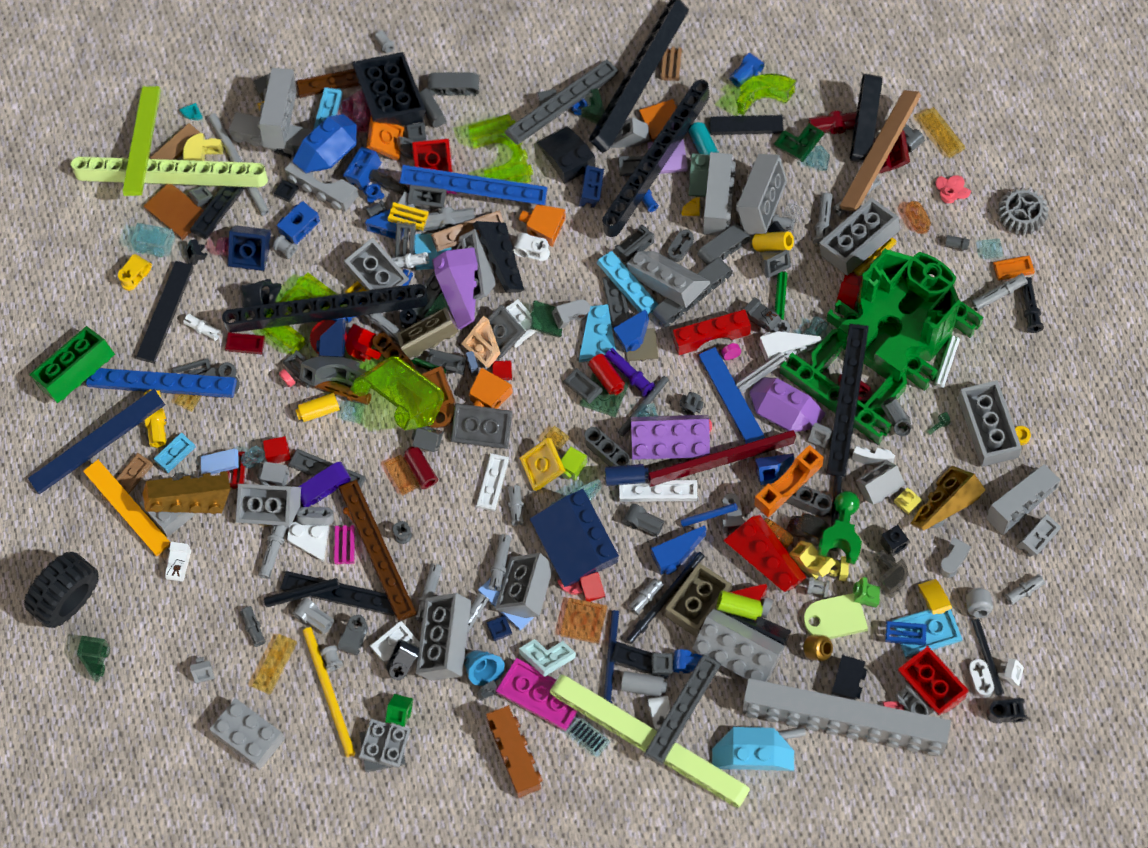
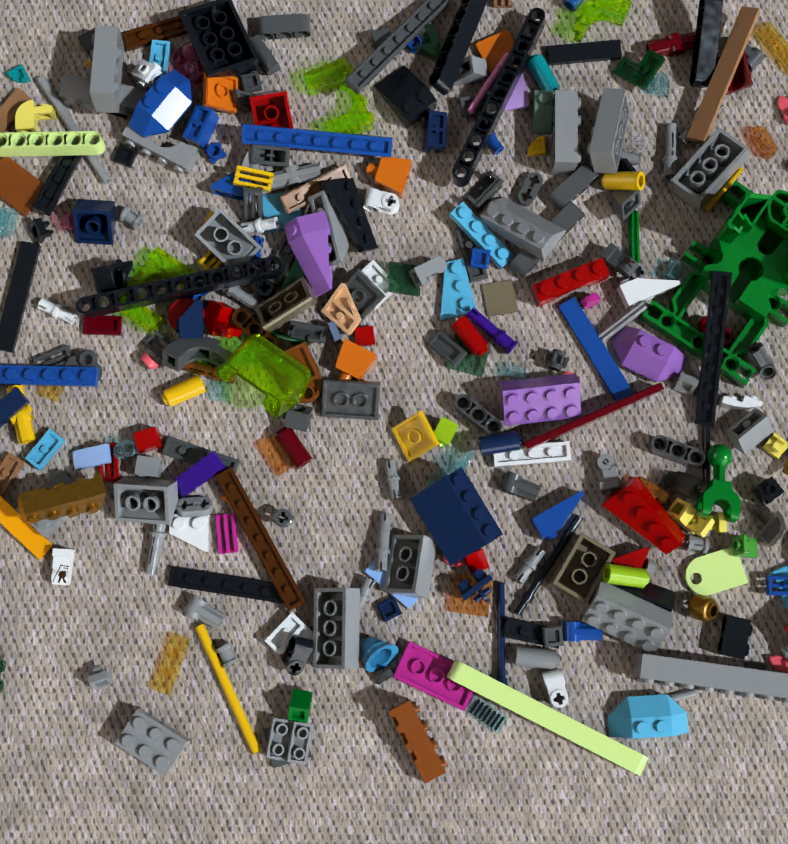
camera: 10 degrees left, 15 degrees up
(200, 195) = (38, 167): dark grey tile -> none
(252, 626) = (145, 627): dark grey pin -> none
(296, 232) = (140, 202): blue brick -> none
(301, 592) = (190, 589): black axle -> none
(315, 115) = (146, 73): none -> white brick
(353, 638) = (245, 633): dark grey piece -> none
(376, 209) = (220, 172): dark grey bush -> none
(388, 182) = (228, 139): clear smoke pin -> none
(429, 589) = (316, 575): light grey pin -> none
(492, 482) = (366, 456): white tile -> none
(547, 660) = (441, 641): light aqua plate -> none
(558, 437) = (425, 404): clear yellow tile -> none
(591, 611) = (482, 579): none -> dark blue hips
(623, 303) = (480, 258): none -> blue tile
(632, 331) = (490, 288): blue slope -> none
(635, 160) = (487, 85): none -> bright pink bar
(648, 399) = (508, 363): dark grey bar -> none
(682, 709) = (578, 686): dark grey tile -> none
(709, 514) = (585, 477): blue bar -> none
(772, 468) = (644, 424): blue slope -> none
(777, 493) = (663, 441): orange arch -> none
(849, 290) = (702, 226): red slope -> none

